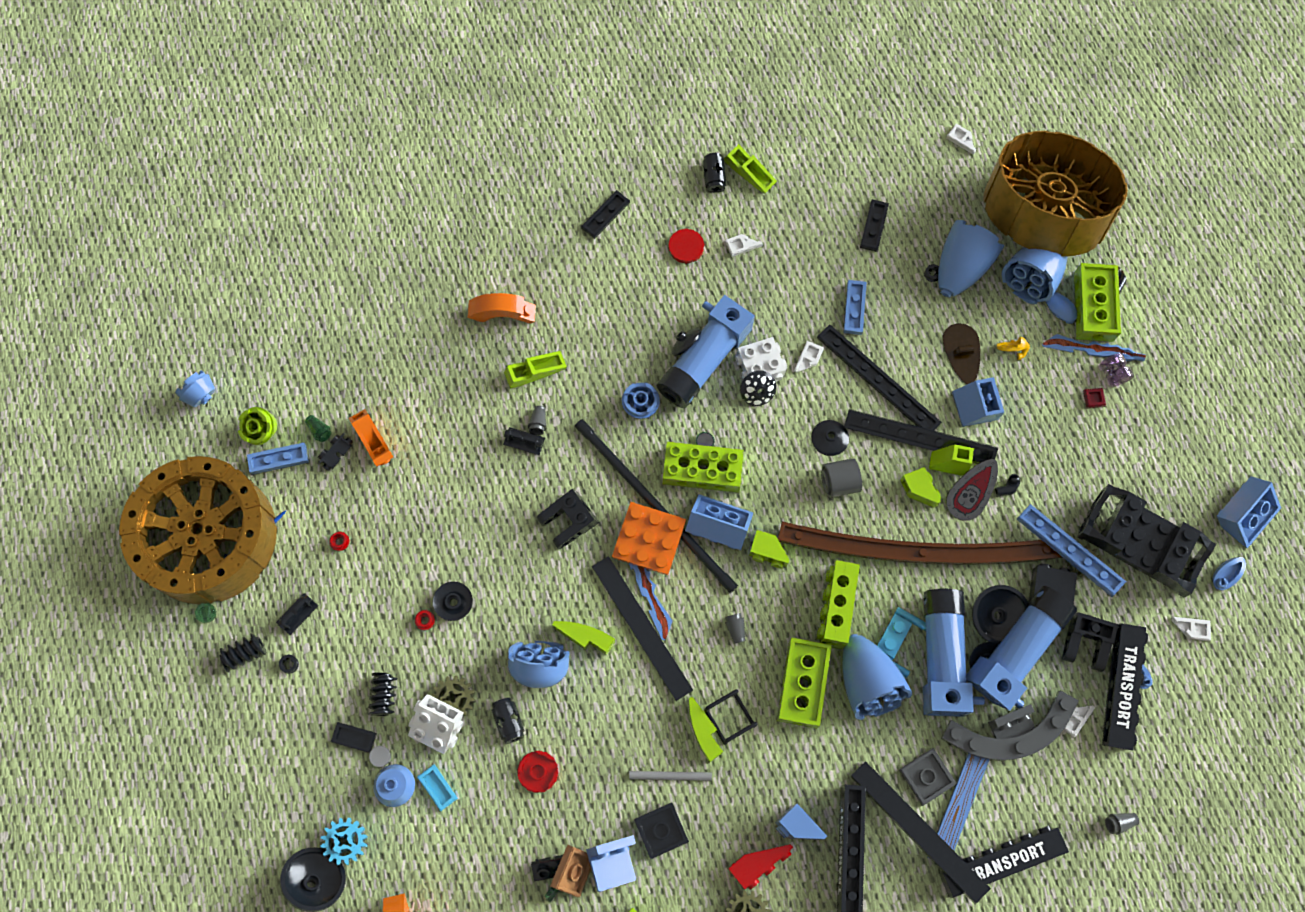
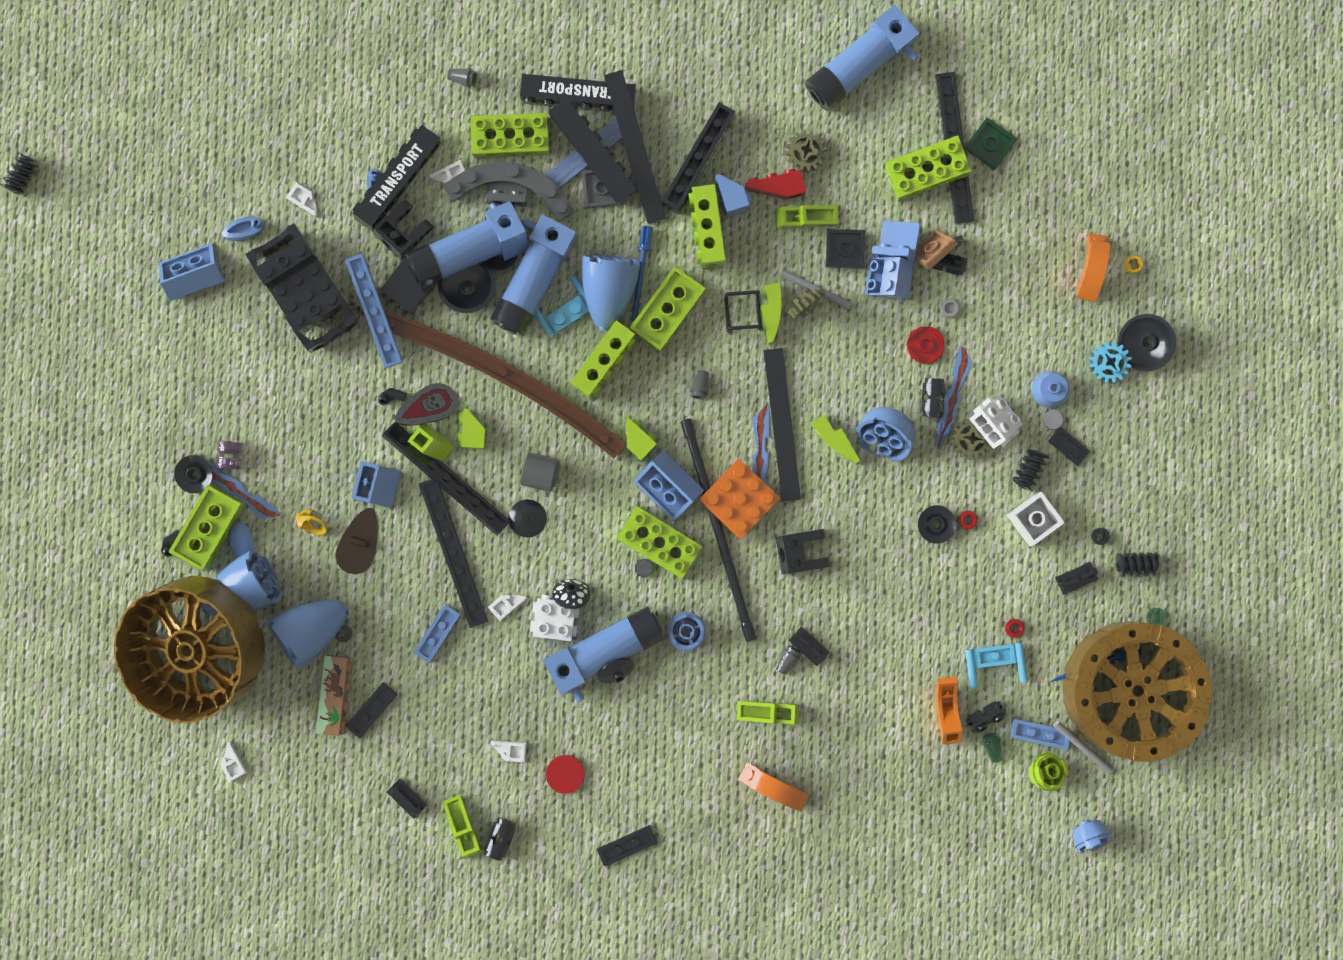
camera: 155 degrees left, 15 degrees up
(240, 464) = (1083, 747): none -> light grey bar
(347, 507) = (995, 656): none -> medium azure plate
(359, 648) = (1035, 518): none -> white brick
(437, 787) = (1015, 371): medium azure tile -> none
(488, 731) = (952, 398): none -> medium blue sword
(529, 820) = (949, 308): none -> light grey tile
(603, 821) = (889, 278): none -> medium blue slope
(674, 753) = (806, 302): none -> olive gear
(714, 846) = (807, 216): none -> lime slope
(807, 172) = (406, 798): none -> black hinge
(808, 795) = (707, 197): none -> lime brick
(856, 736) = (645, 244): none -> blue piece
(912, 221) = (333, 695): none -> brick
(958, 804) = (592, 151): none -> black brick
(1057, 788) = (510, 123): none -> lime brick
(1094, 398) = (263, 440): dark red tile -> none
(1140, 336) = (185, 478): none -> black dish

